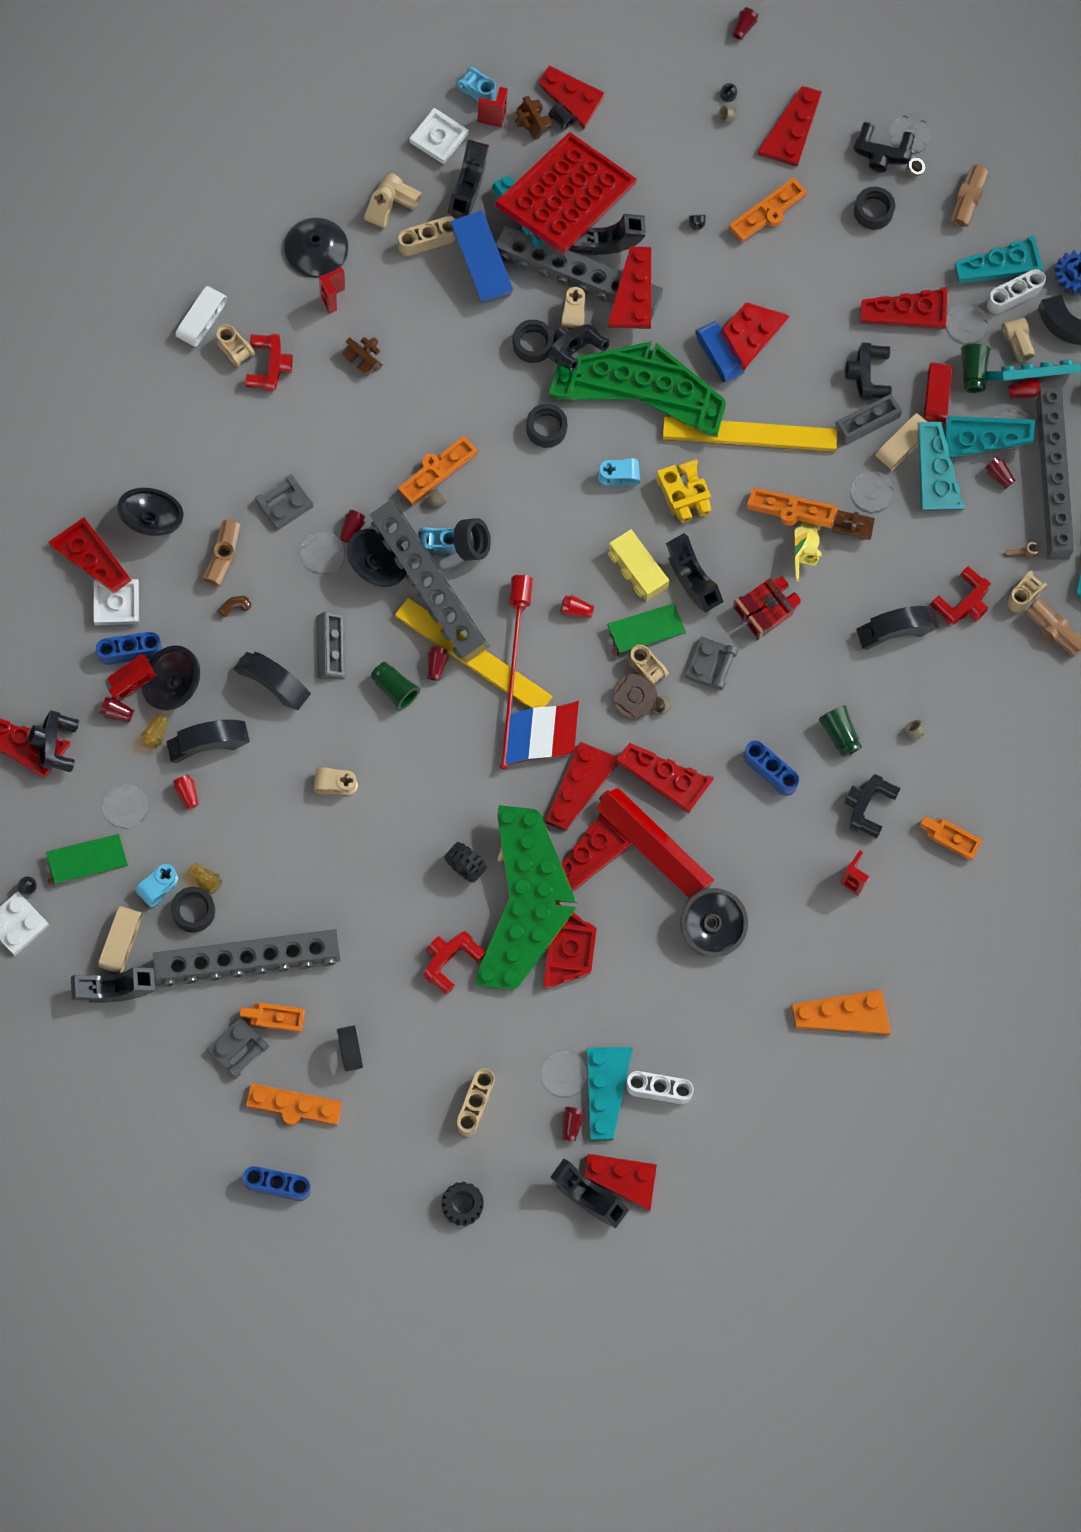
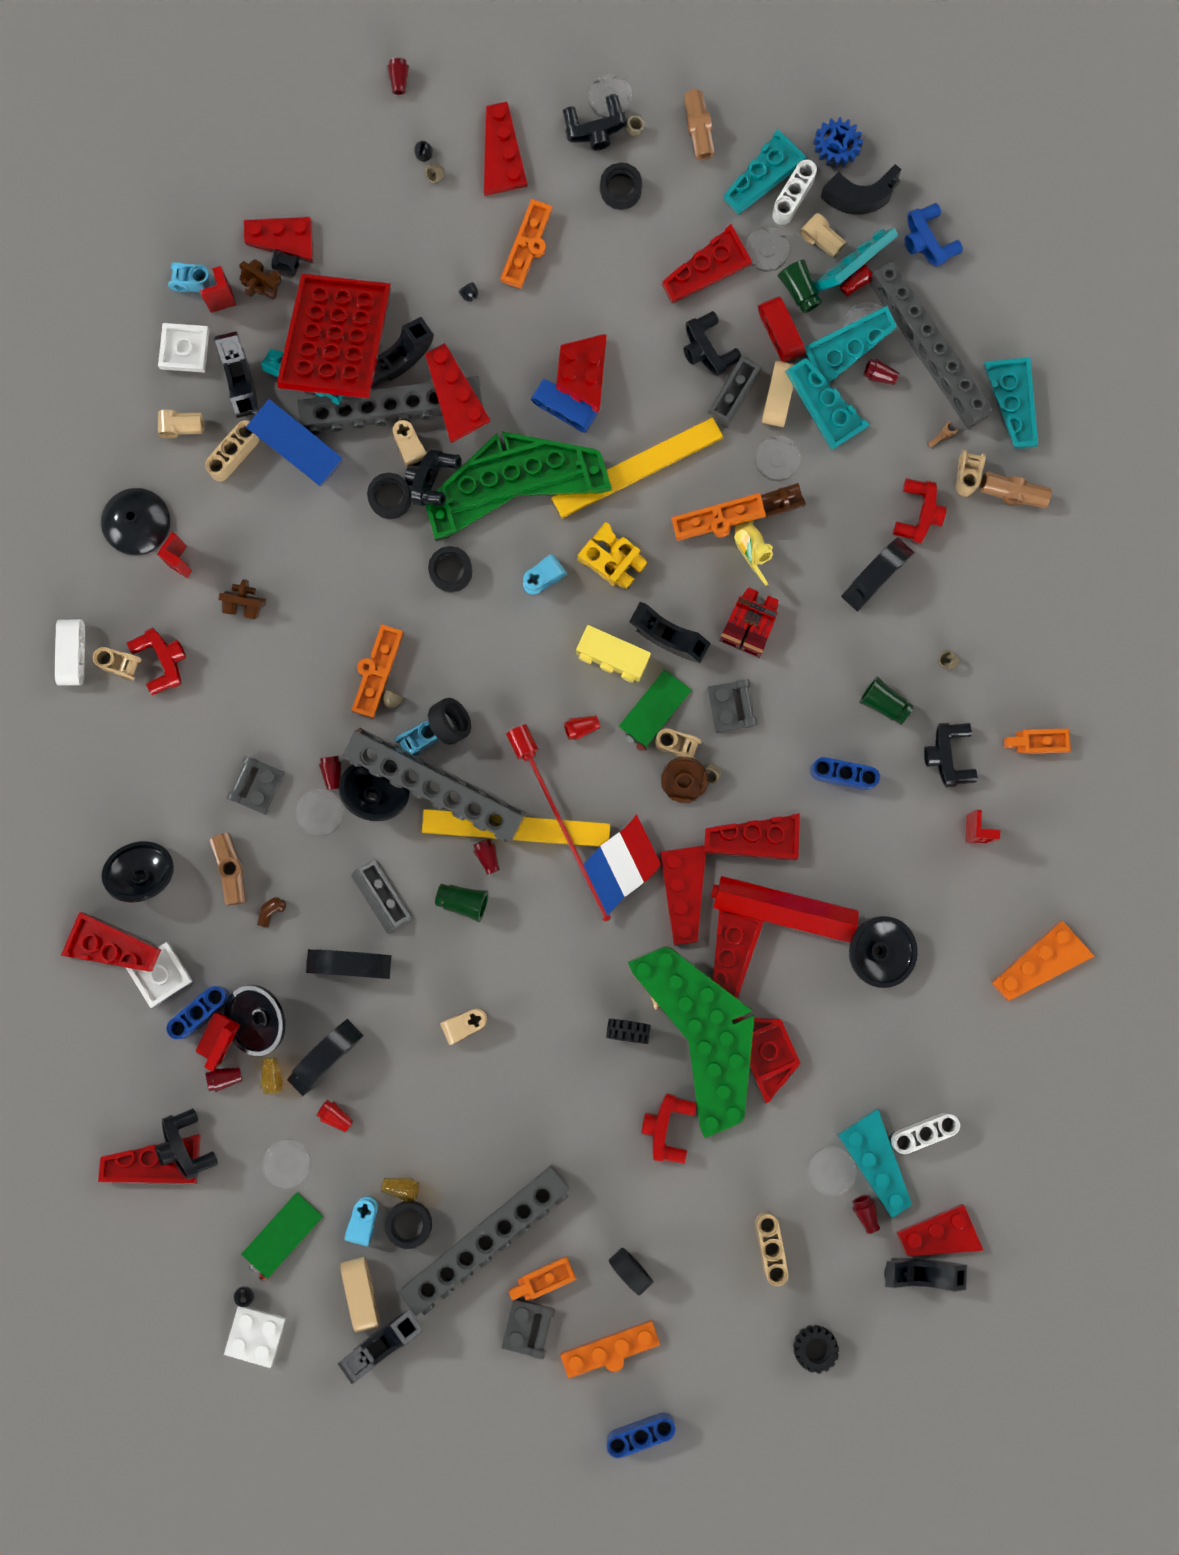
camera: 25 degrees left, 10 degrees up
(380, 205) = (171, 447): tan piece -> none

